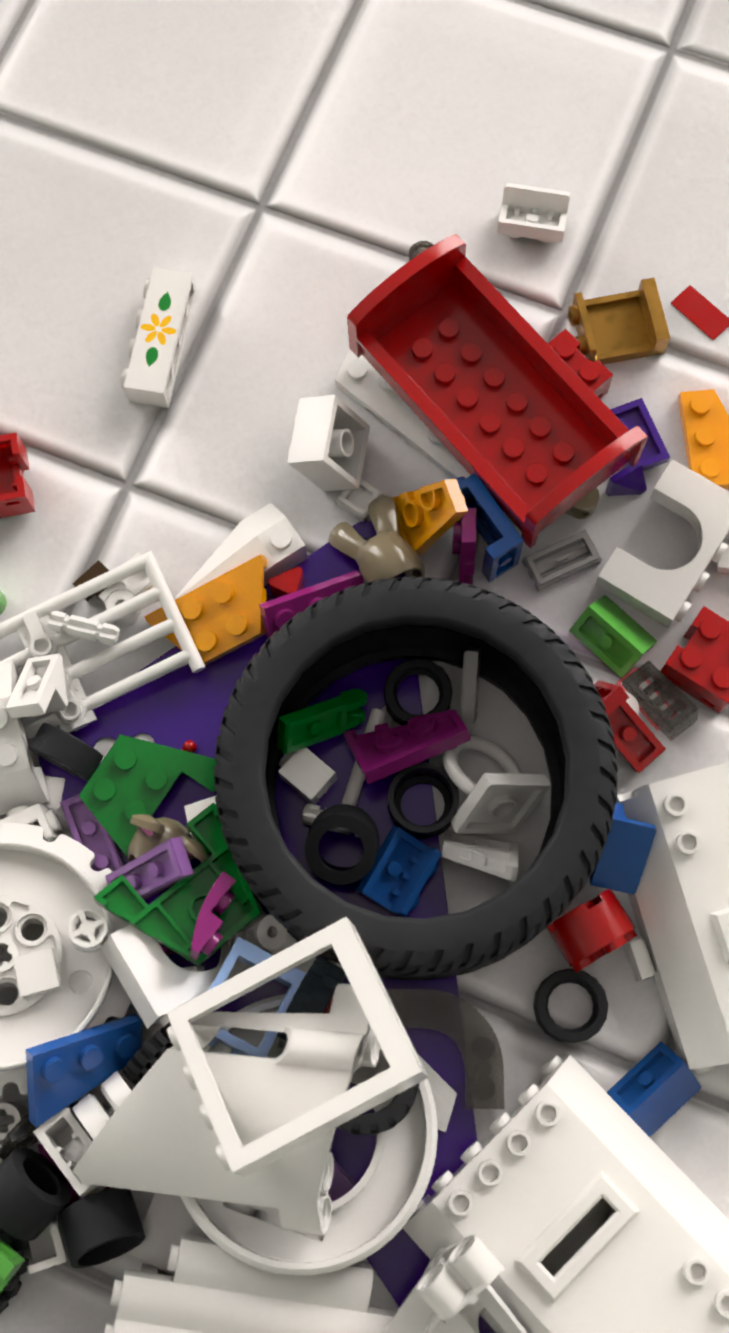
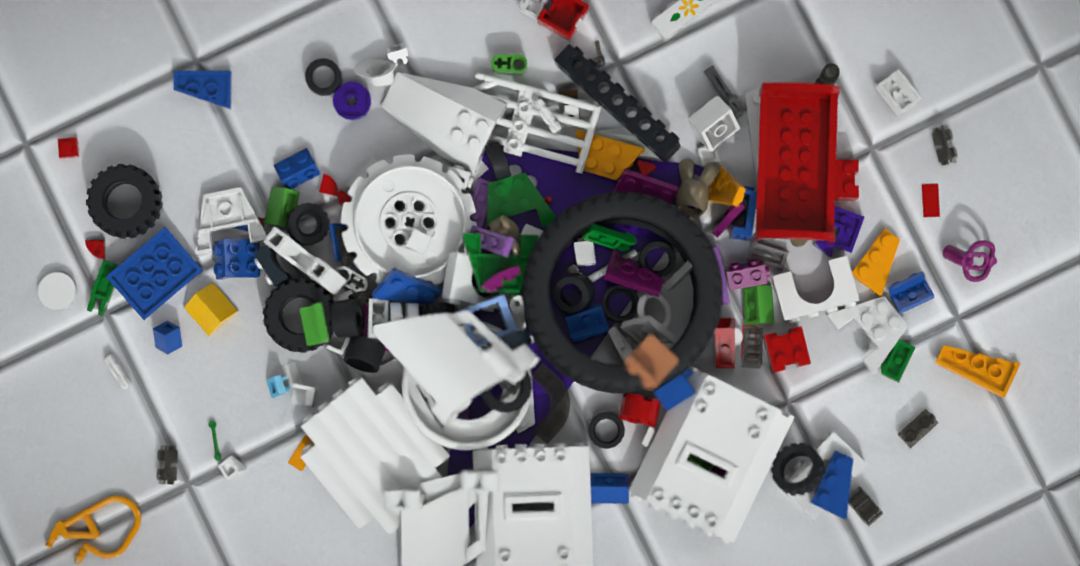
camera: 40 degrees right, 10 degrees up
(39, 688) = (509, 126): white slope -> none
(85, 923) = (452, 240): white wheel -> none
(98, 501) = (600, 60): none -> clear smoke hand
(289, 396) = (724, 92): none -> dark grey pin
(289, 531) = (663, 150): none -> black brick
(379, 1010) = (520, 393): white window -> none
(560, 835) = (651, 362): none -> nougat bracket
(565, 600) = (747, 274): none -> magenta brick
(621, 324) = (887, 175): pearl gold panel -> none
(664, 233) = (947, 152): none -> clear smoke hinge

